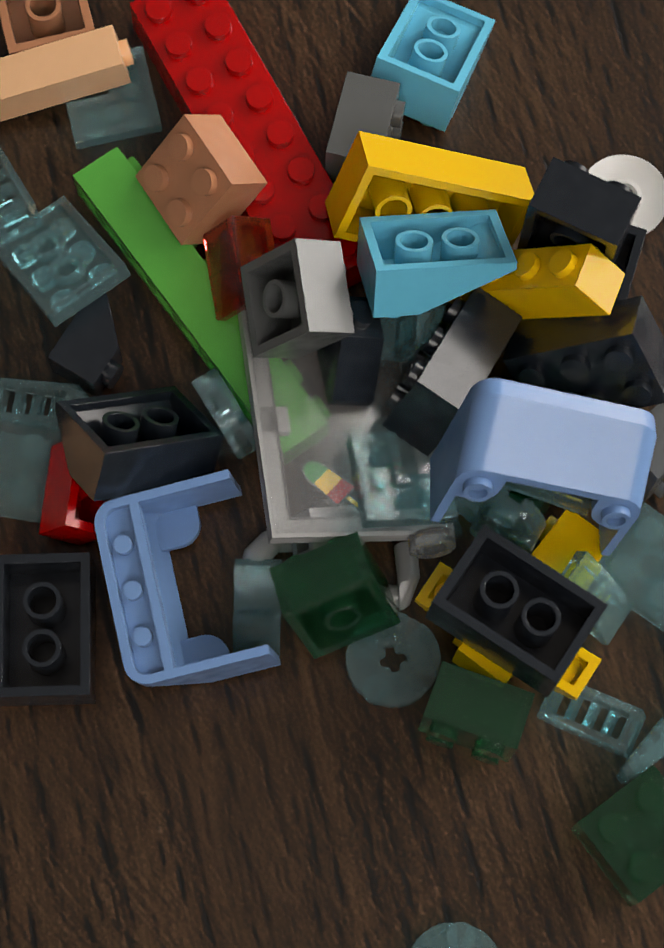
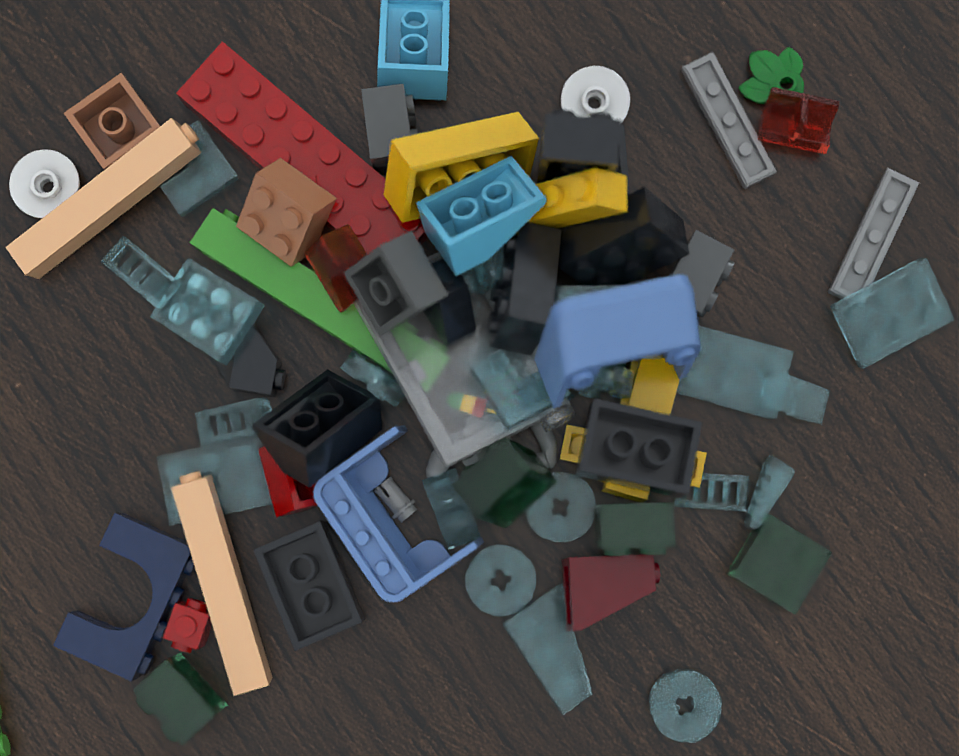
camera: 20 degrees left, 10 degrees up
(193, 573) = (395, 499): none -> light grey pin
(259, 736) = (489, 597): none -> clear light blue plate
(310, 827) = (550, 650): none -> clear light blue wing
(411, 774) = (604, 585): none -> dark red slope
(591, 576) = (685, 404): clear light blue slope -> none

